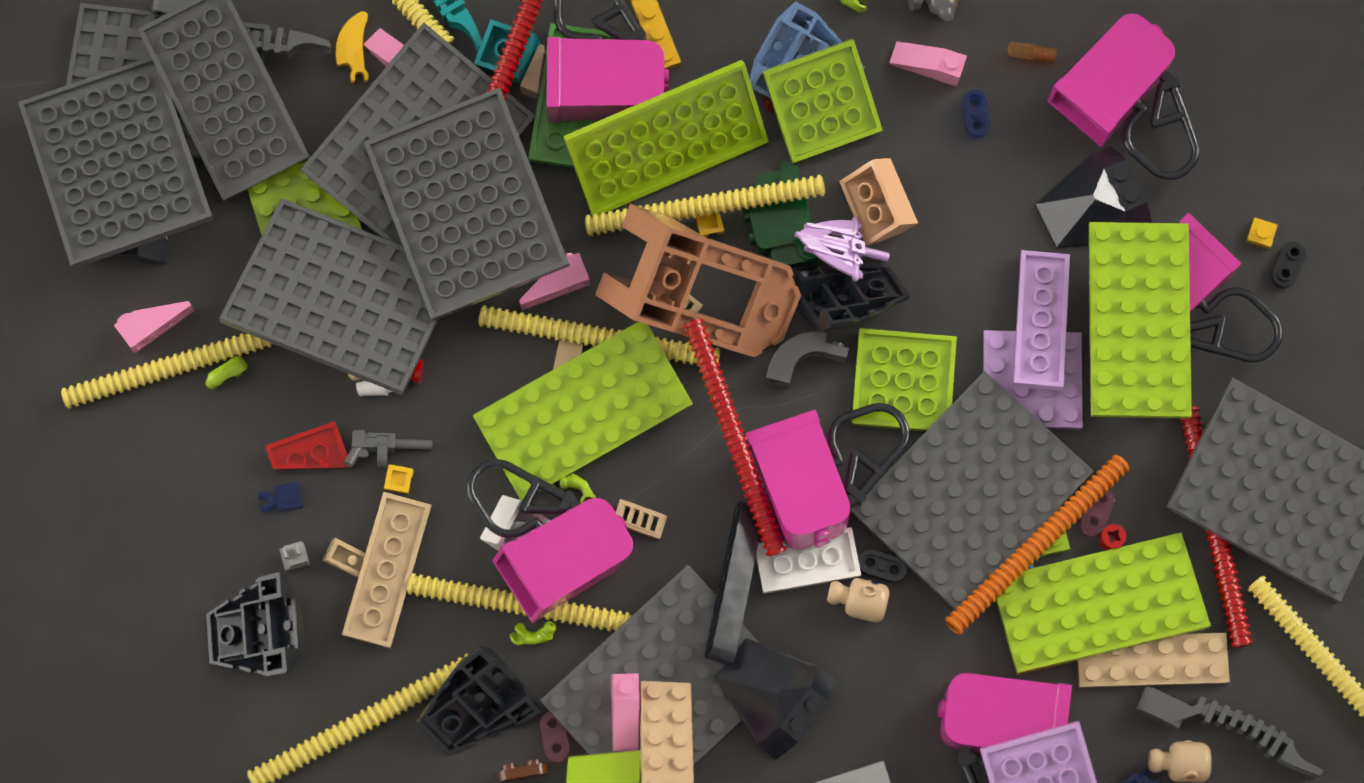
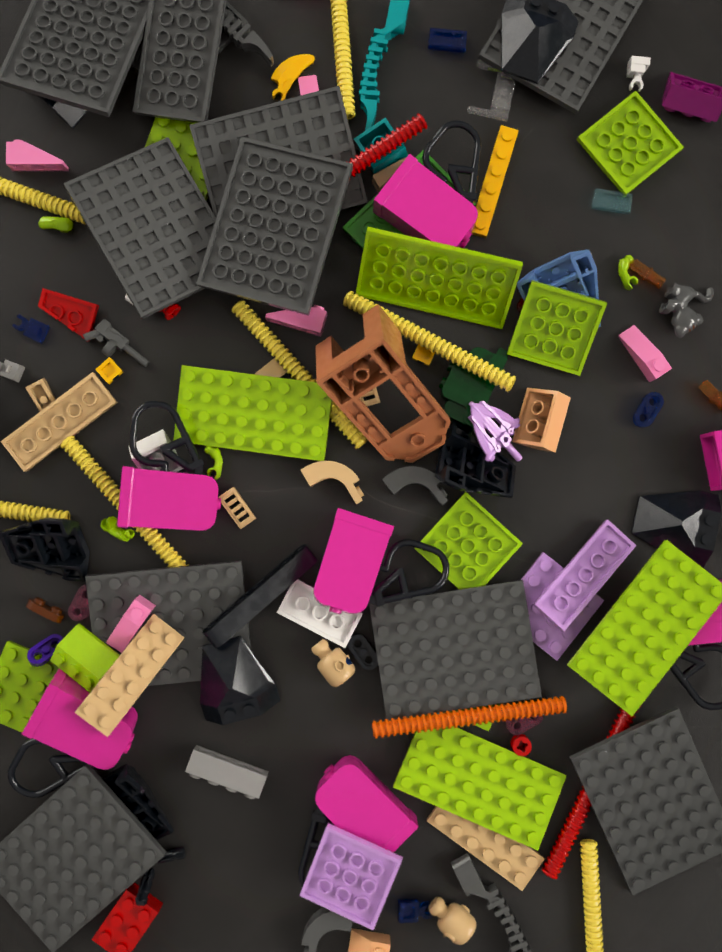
camera: 40 degrees right, 10 degrees up
(701, 413) = (325, 470): none -> tan arch
(735, 437) = (329, 504): red piece -> none

